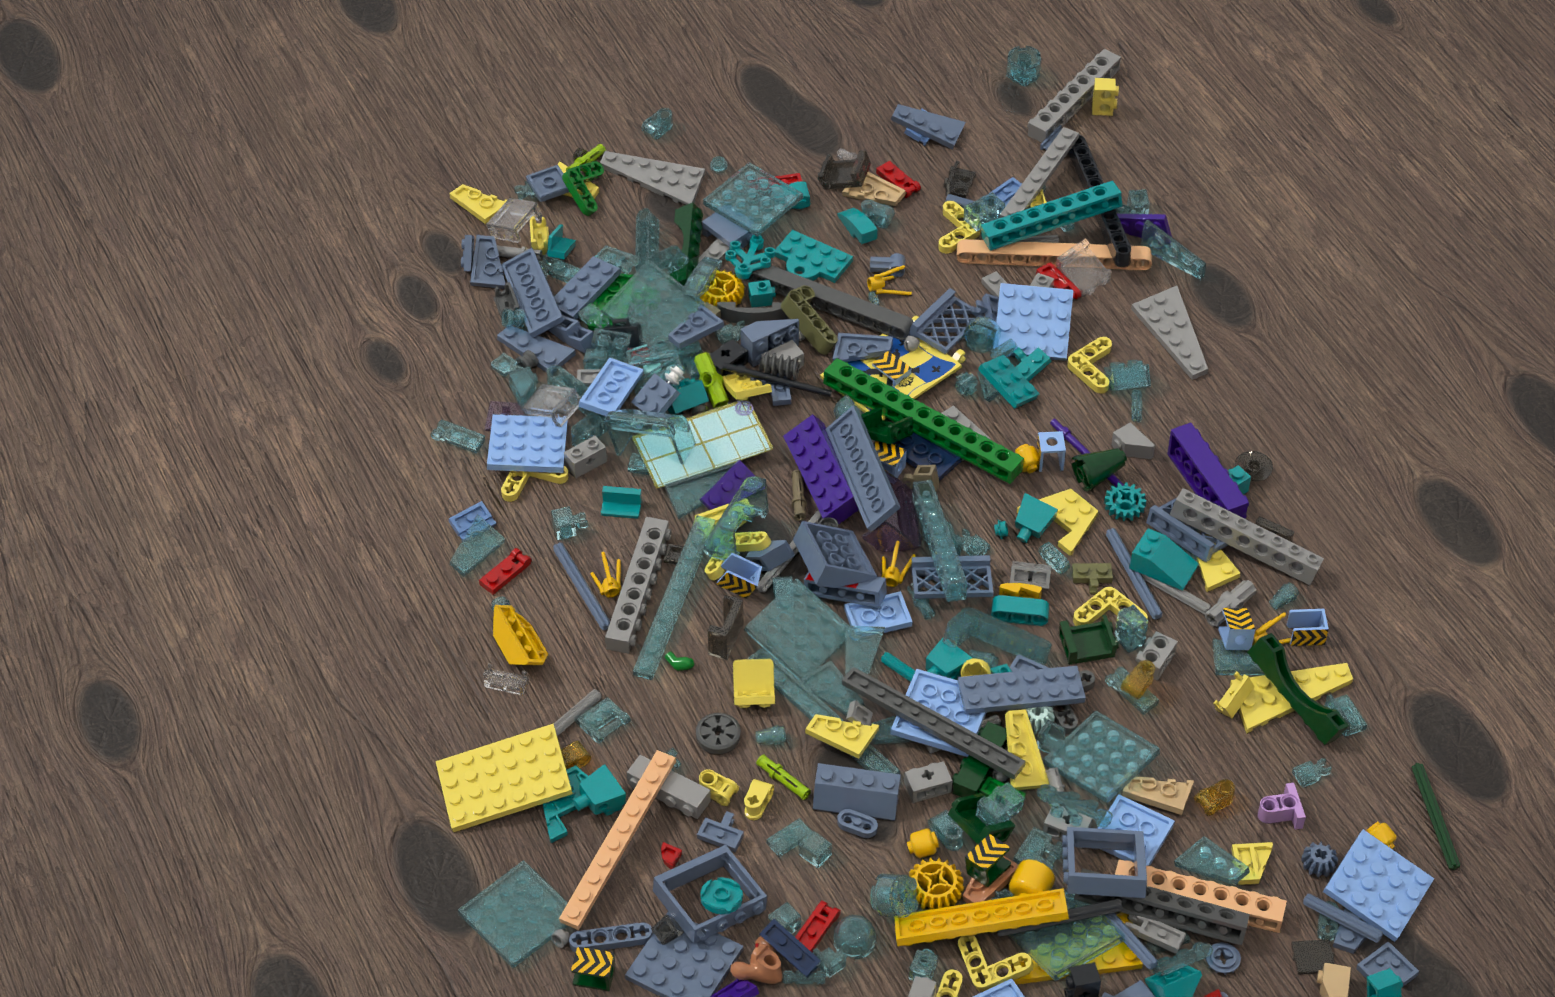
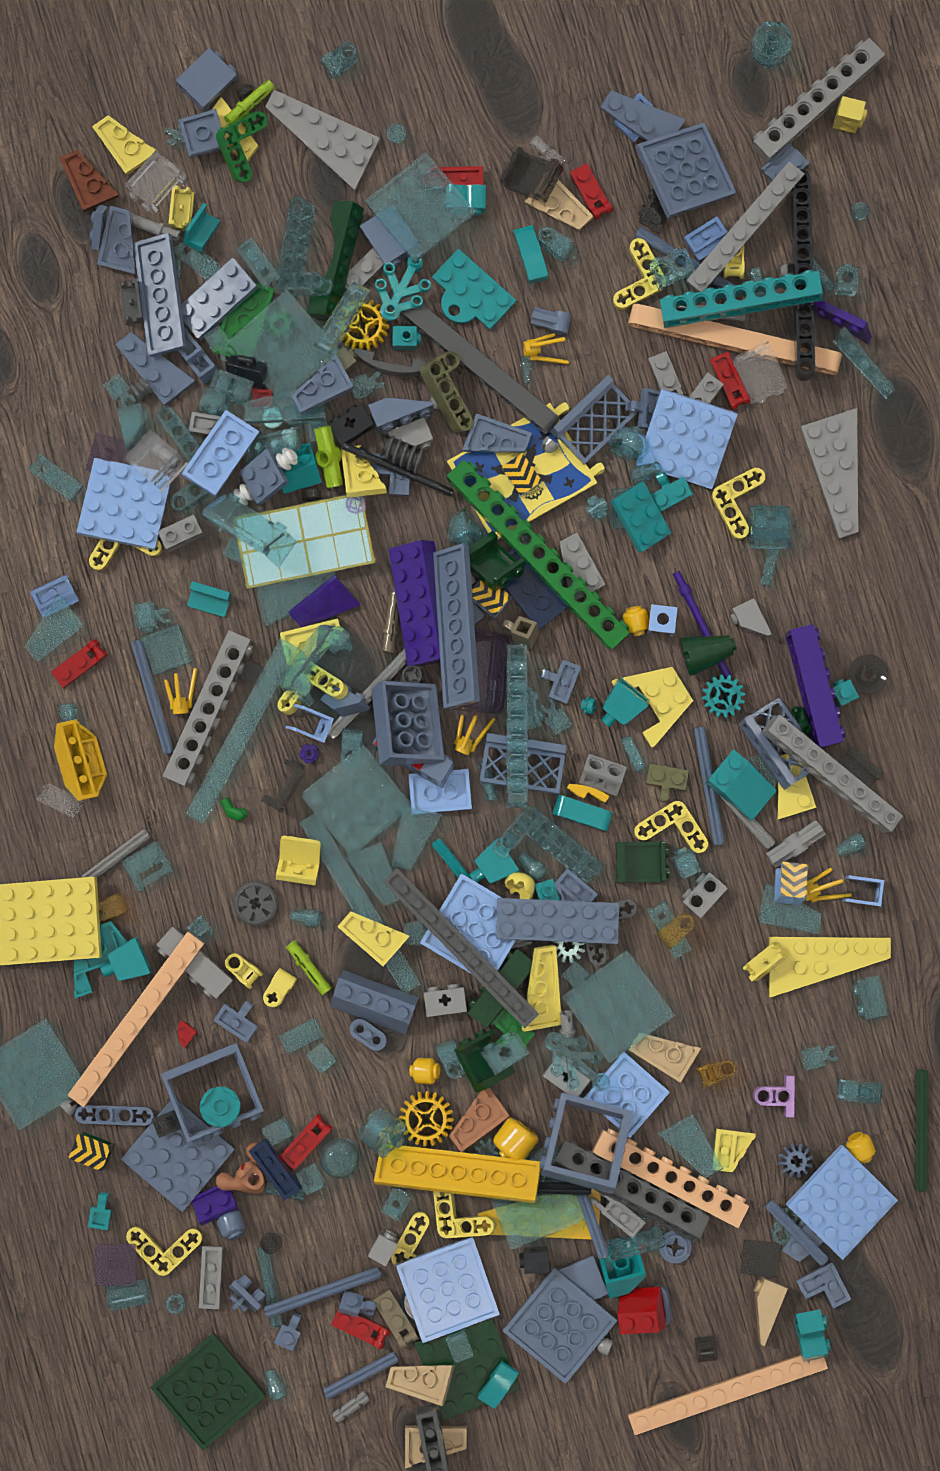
camera: 15 degrees right, 35 degrees up
(448, 230) = (87, 182): none -> copper wing
(514, 318) = (134, 329): clear light blue wheel -> none
(544, 150) = (206, 79): none -> sand blue panel
(587, 548) = (166, 649): none -> clear light blue tile
(748, 606) = (309, 748): none -> dark purple plate
(859, 713) = (393, 918): light grey bracket -> none
(971, 513) = (562, 681): none -> sand blue plate
(976, 149) = (685, 170): none -> sand blue plate
(986, 860) = (479, 1111): piece -> none
(1034, 847) = (528, 1095): clear light blue plate -> none
(1134, 158) = (860, 211): none -> clear light blue plate
(1271, 659) = (842, 1005): dark green arch -> none
(1361, 789) = (859, 1091): none -> clear light blue slope

